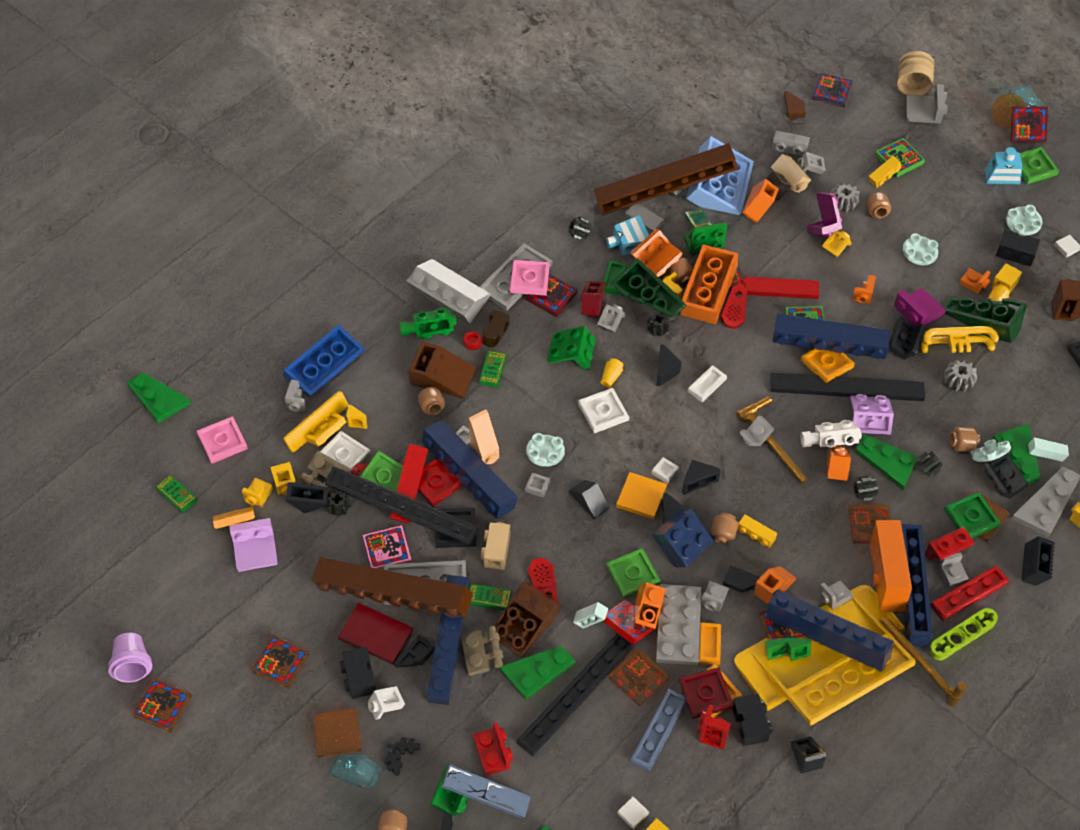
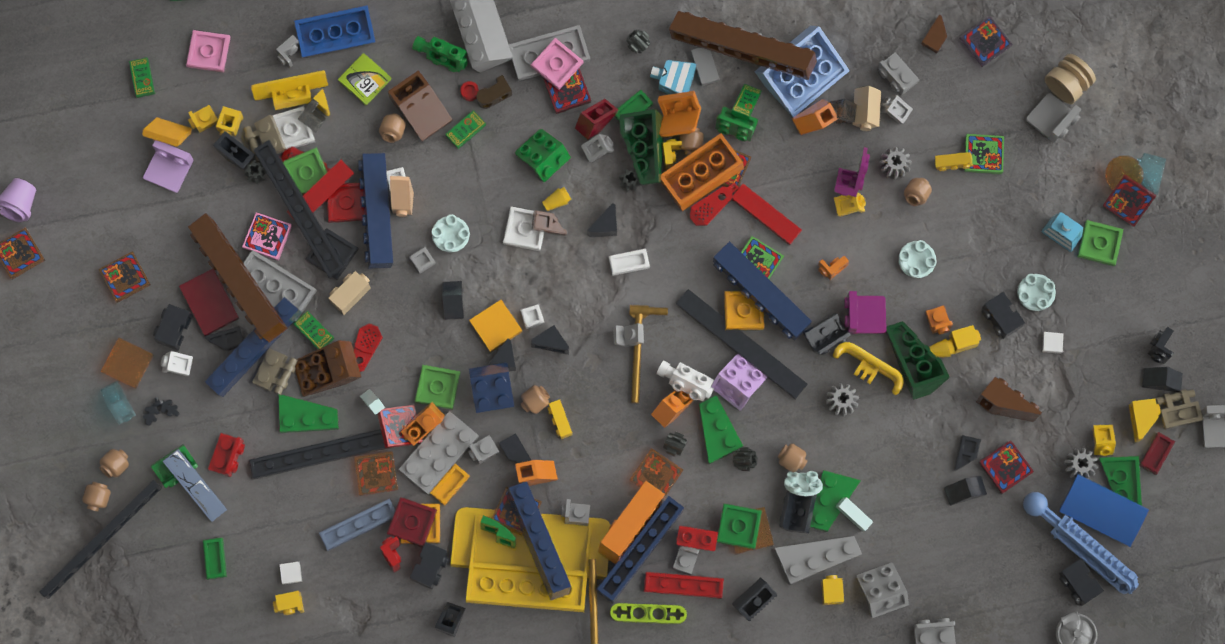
camera: 35 degrees right, 20 degrees up
(355, 433) = (311, 117): none -> clear smoke panel
(377, 381) = (364, 79): none -> slope
(618, 393) = (547, 223): none -> tile

